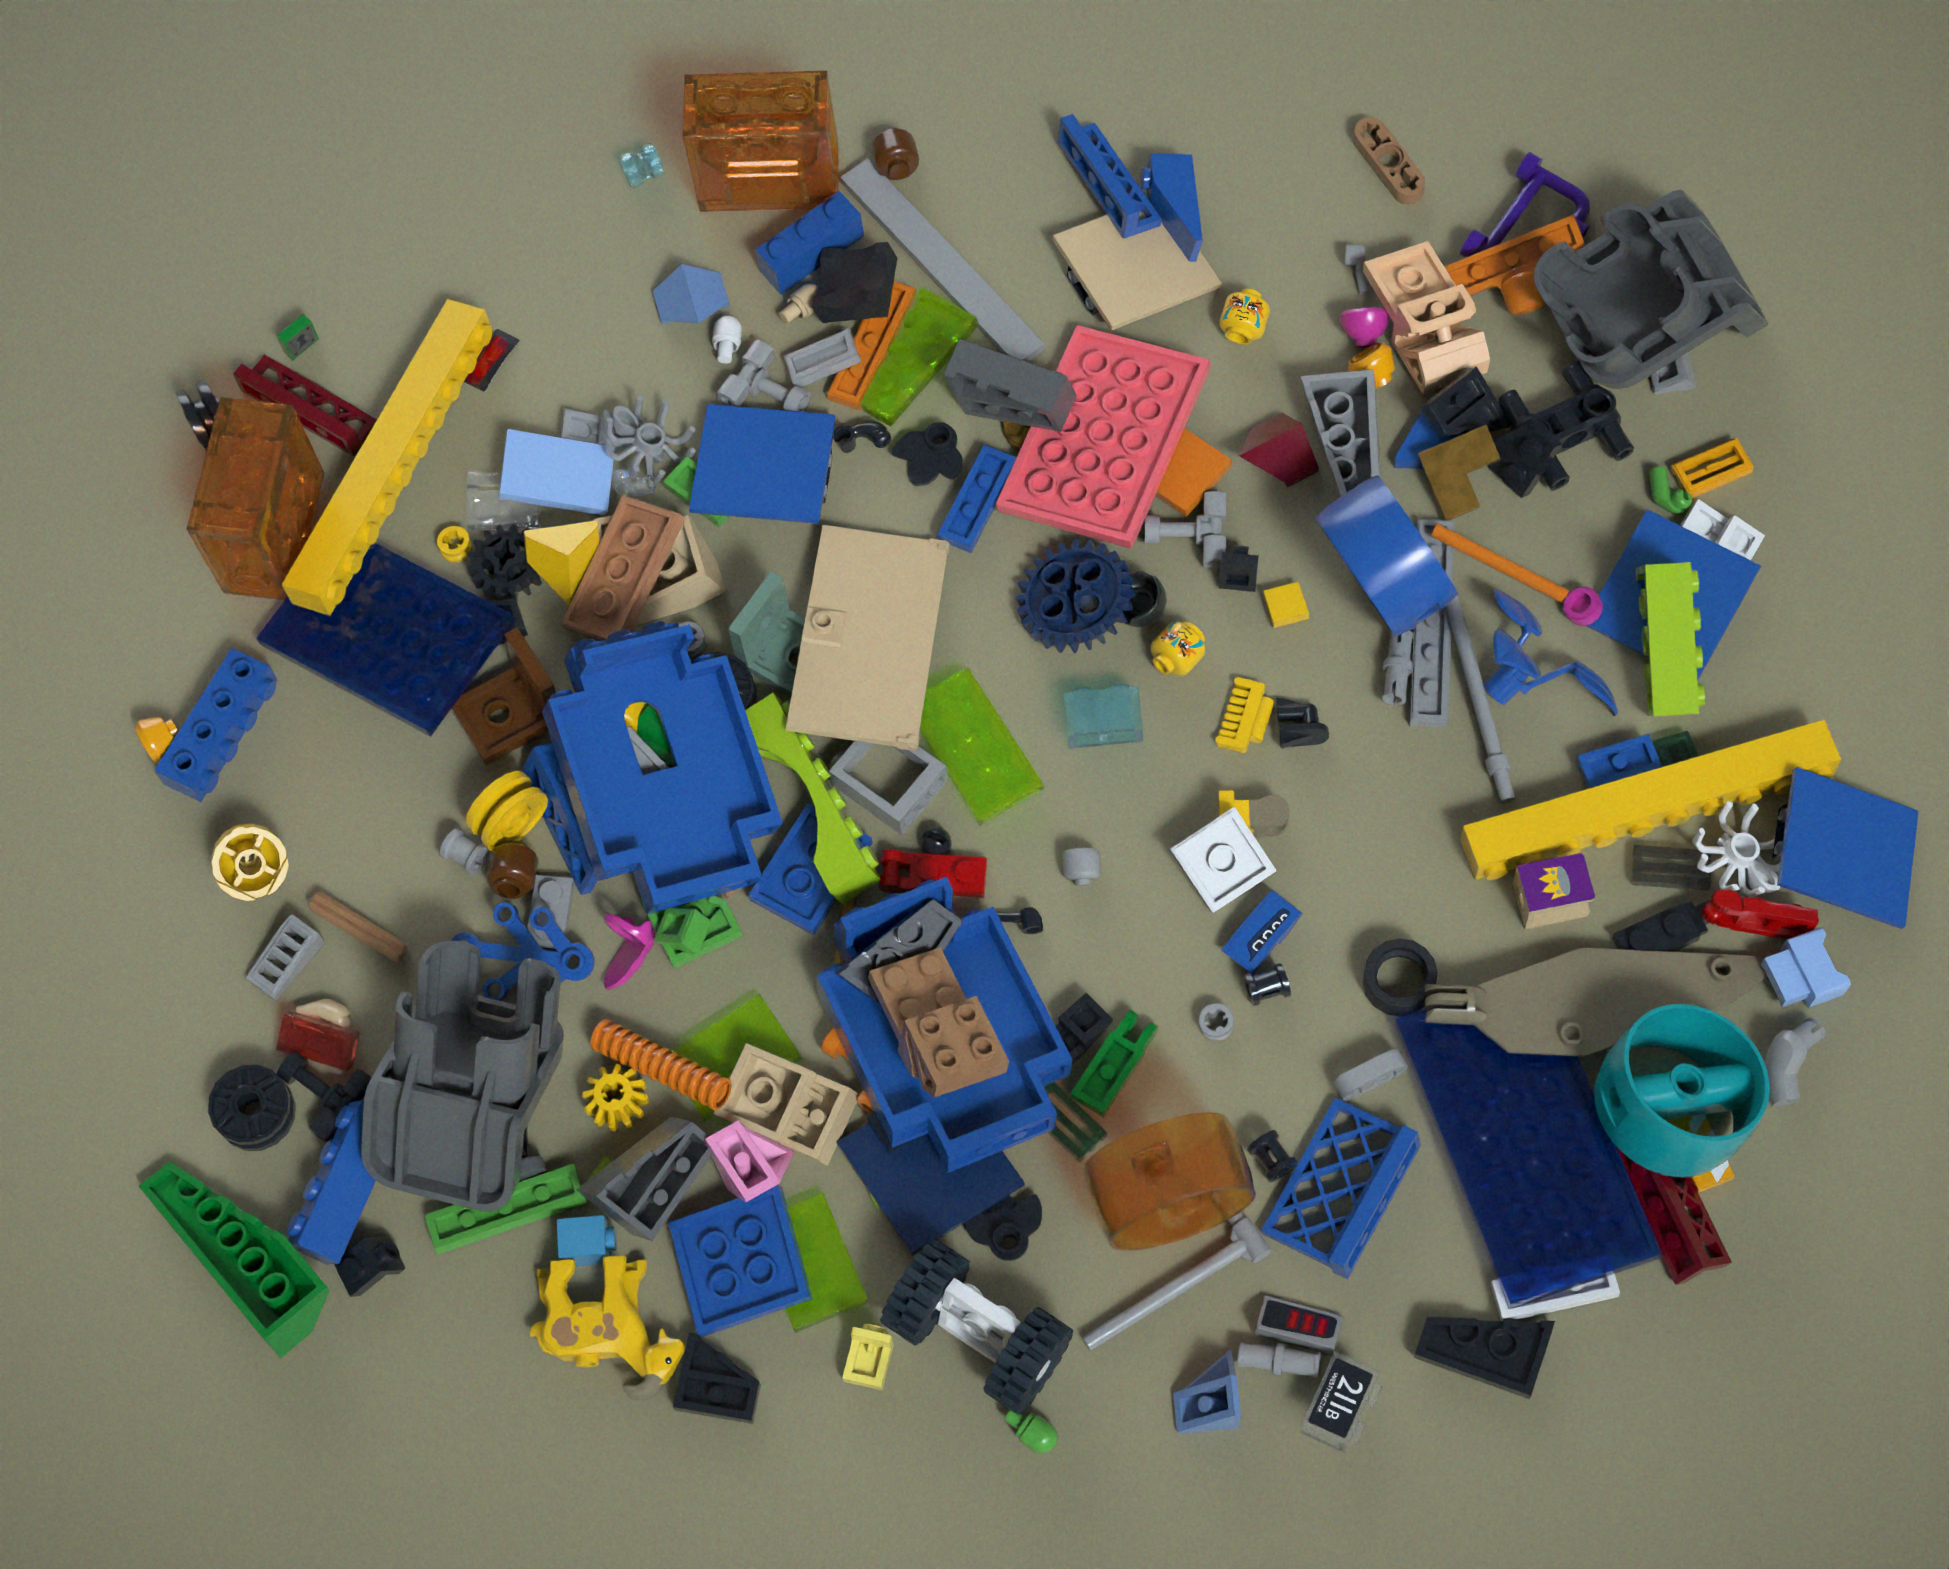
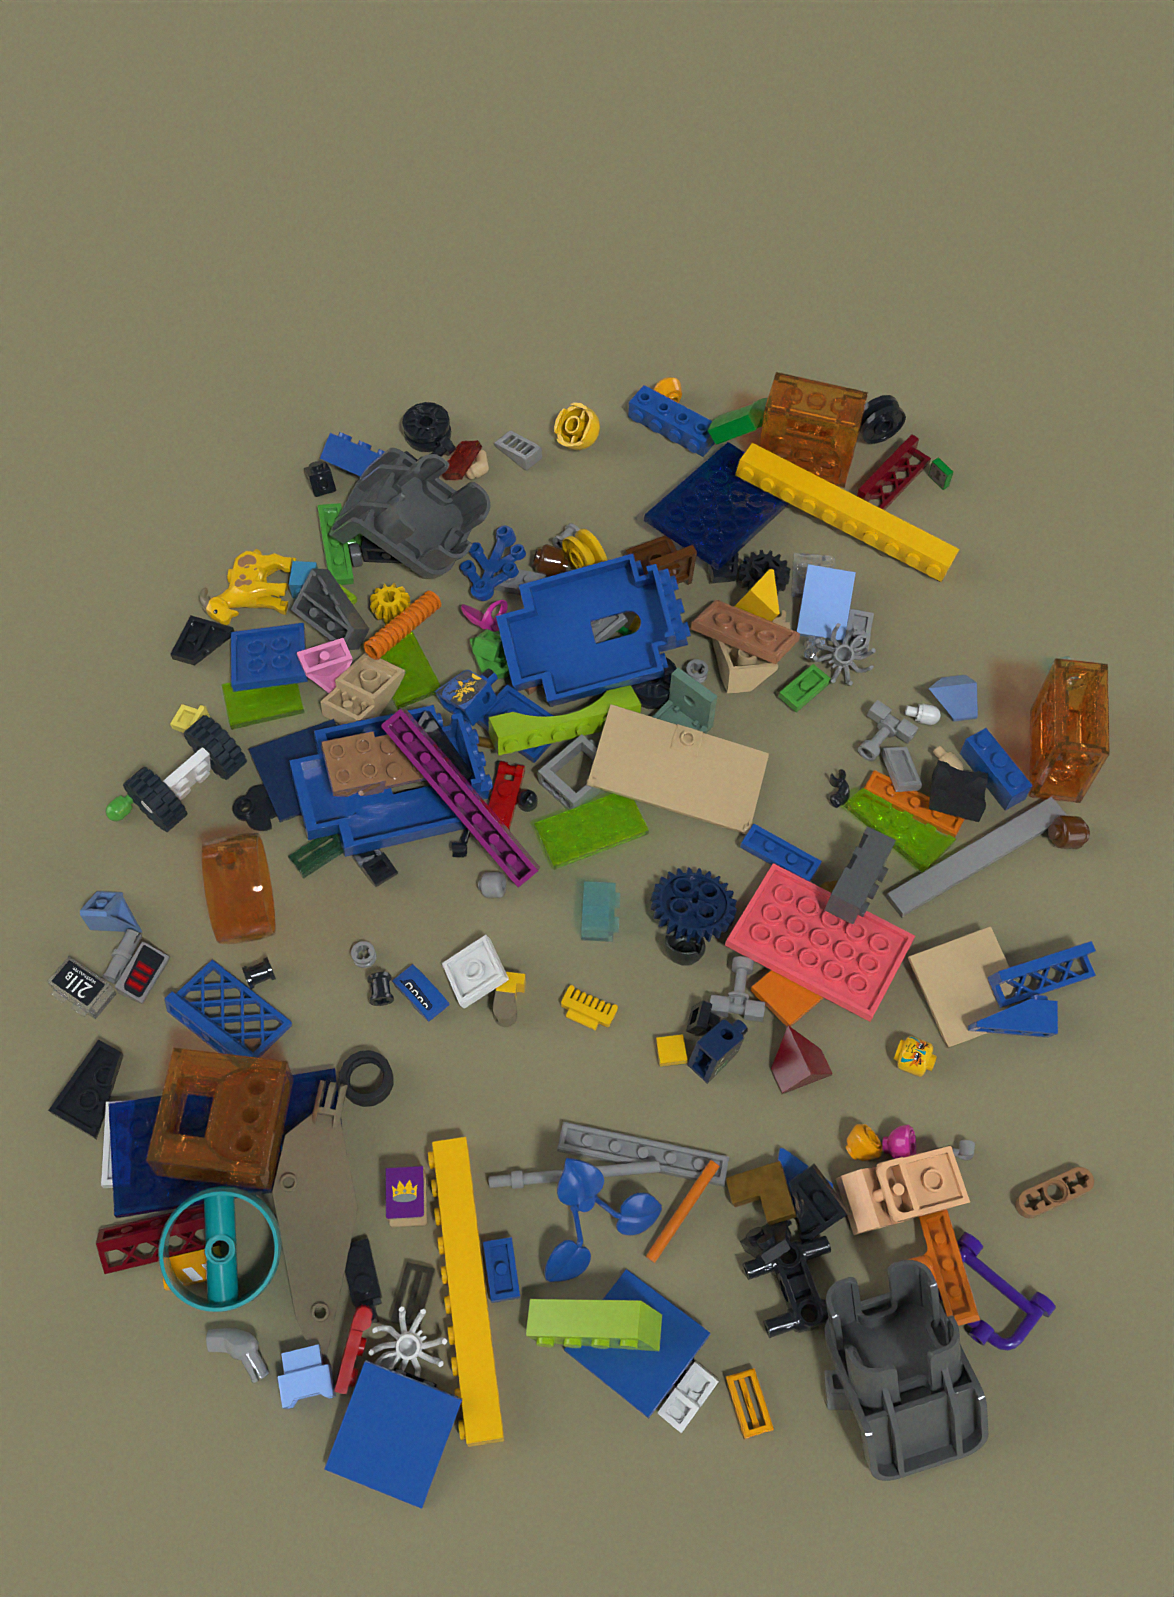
camera: 90 degrees right, 5 degrees down
(228, 610) = (738, 421): none -> green slope
(243, 1256) = (334, 412): green wedge -> none
(358, 927) = (530, 485): medium nougat axle -> none
(459, 553) = (786, 543): yellow bush -> none
(491, 359) = (920, 579): sticker -> none
(763, 464) = (819, 724): blue piece -> none
(778, 943) = (468, 694): none -> blue torso
(927, 458) = (818, 828): black plate -> none
(976, 899) = (460, 796): none -> magenta brick
(1112, 1066) = (346, 884): green hinge -> none
(1178, 648) = (644, 968): yellow head -> none
(1245, 1243) = (205, 948): light grey bar -> none
(1281, 541) = (717, 1049): none -> dark blue torso
(1304, 734) = (586, 1039): black piece -> none
(1346, 424) = (797, 1113): light grey wedge -> none
(1370, 1074) = (300, 1046): light grey beam -> none
(1387, 555) = (680, 1106): blue cylinder -> none
(1397, 668) = (608, 1119): light grey pin -> none
(1510, 1098) = (244, 1116): none -> clear orange piece
(1582, 606) = (638, 1269): dark pink tile -> none
(1666, 497) = (728, 1357): bright green arm -> none
(1675, 748) = (504, 1318): clear green tile -> none

